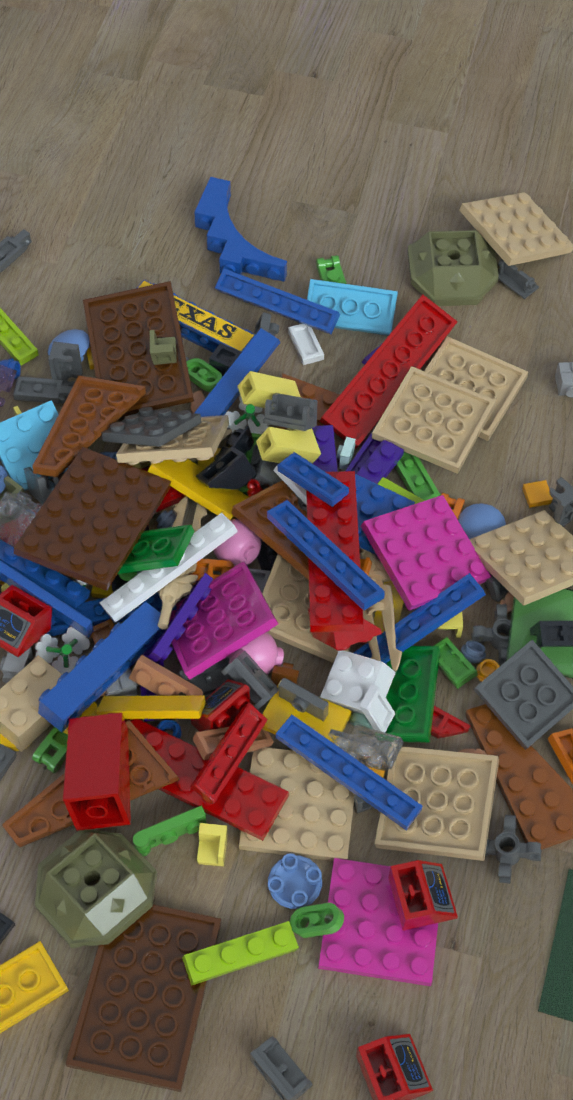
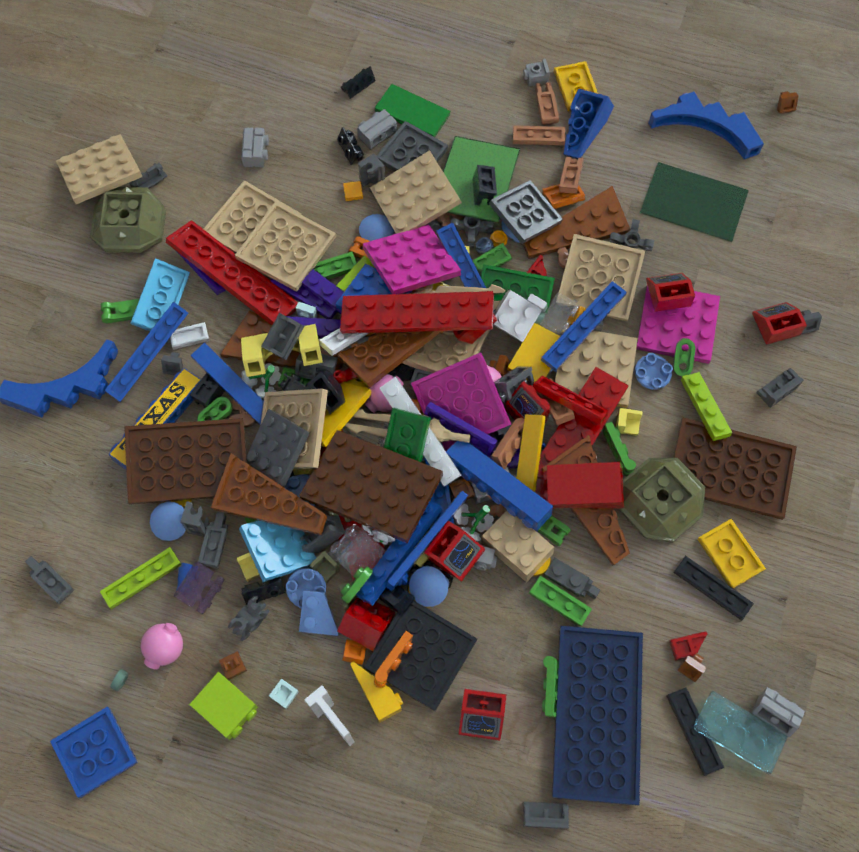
camera: 85 degrees left, 10 degrees up
(162, 349) = (195, 435): olive panel -> none
(303, 700) = (530, 349): dark grey plate -> none
(313, 479) = (352, 322): blue tile -> none
(326, 555) = (432, 311): blue plate -> none

